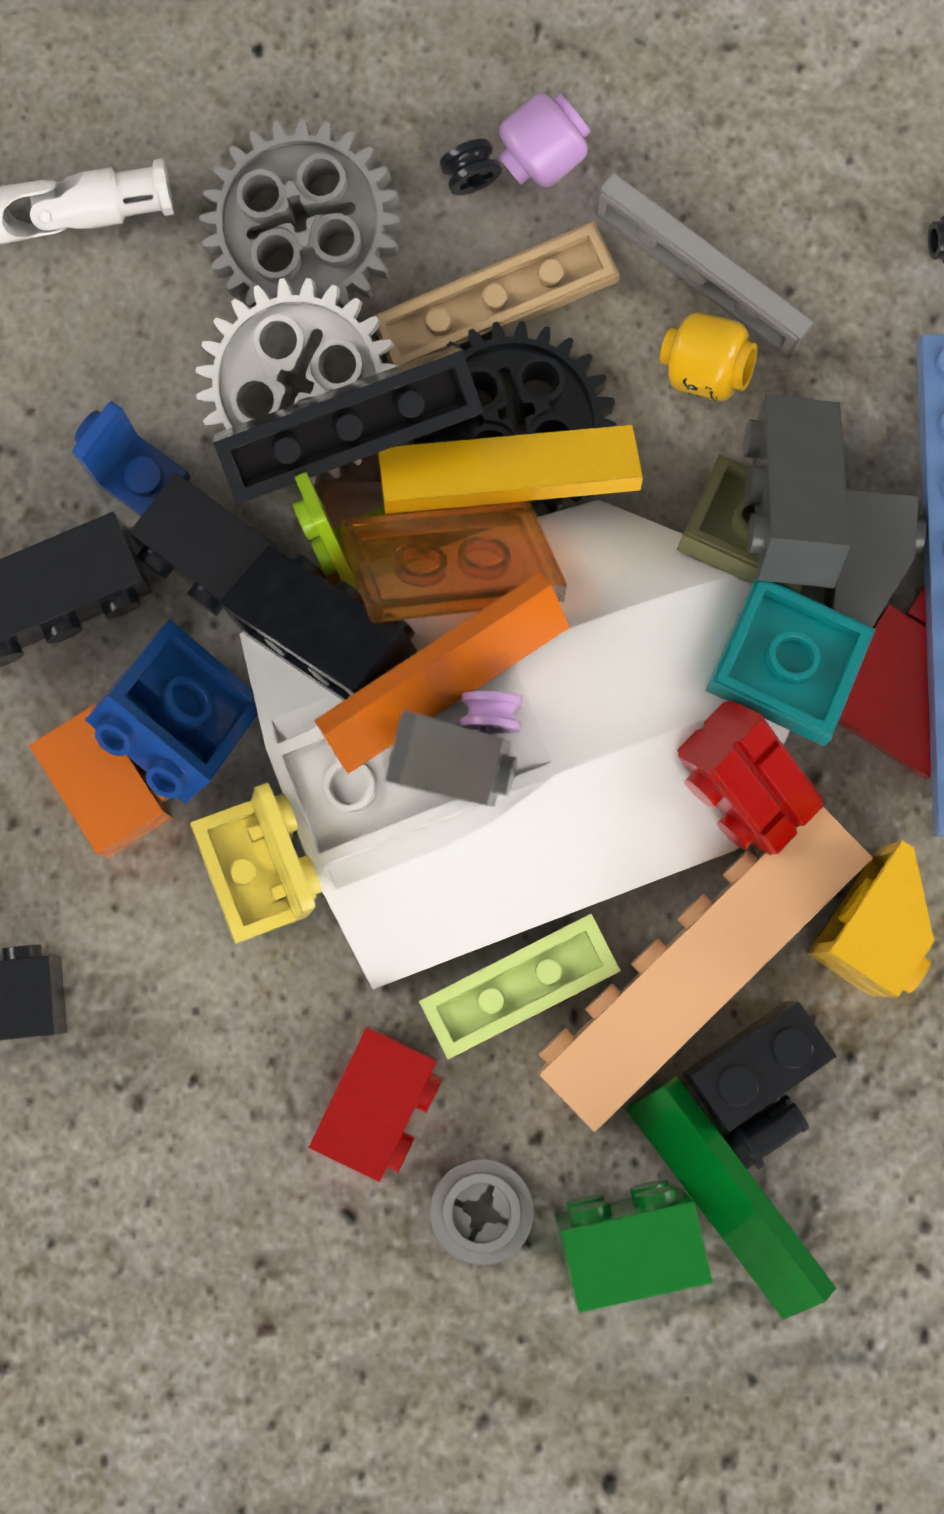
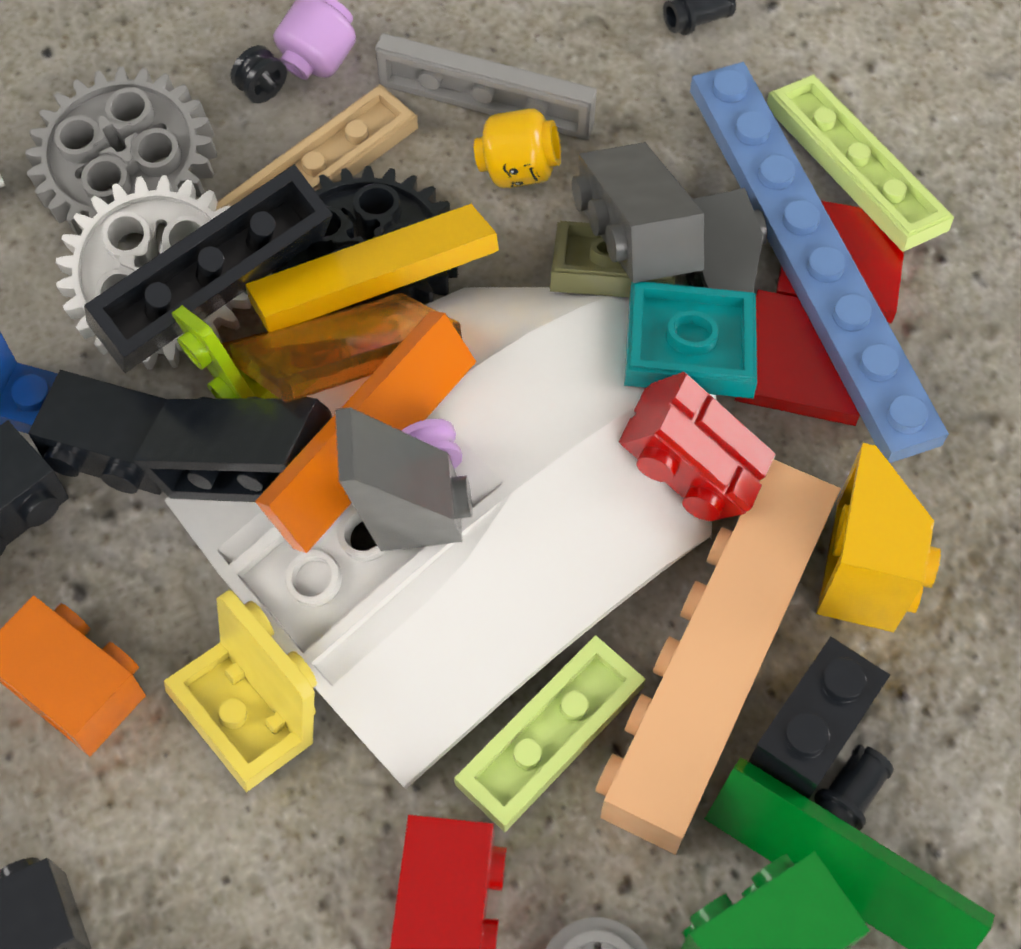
camera: 15 degrees left, 20 degrees down
(174, 714) = (116, 580): blue plate -> none

